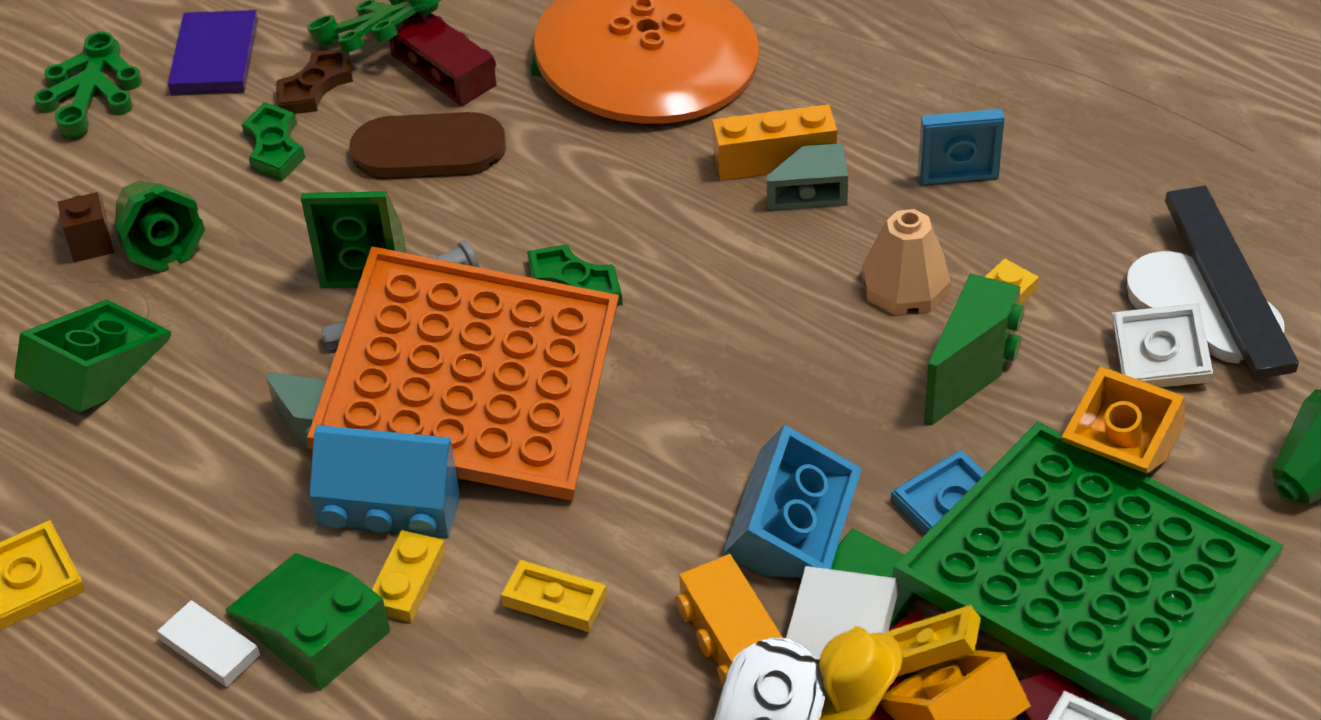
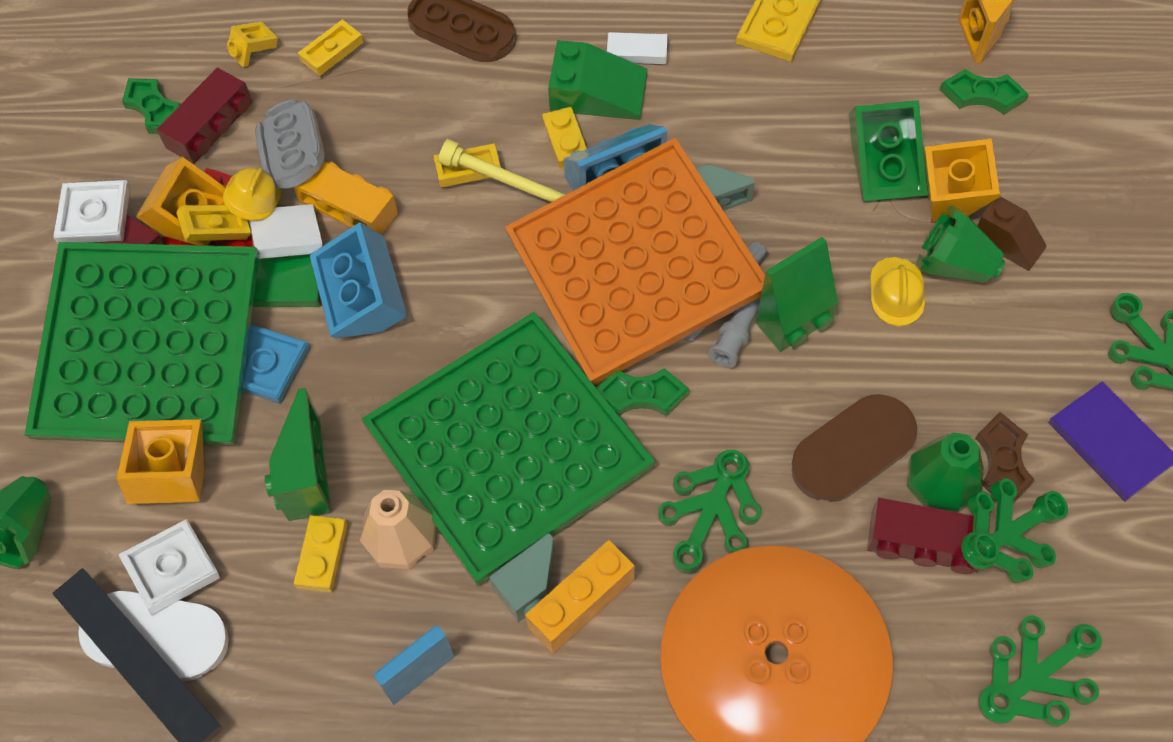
camera: 145 degrees right, 15 degrees up
(72, 265) = (961, 176): none -> light orange slope
(240, 238) = (897, 291): none -> yellow piece
(274, 149) = (983, 392): green tile -> none
(374, 78) = (946, 472): none -> green cone
(555, 176) = (711, 504): none -> green plant
(567, 584) = (454, 155): none -> light yellow piece
(744, 295) = (507, 446): none -> green plate

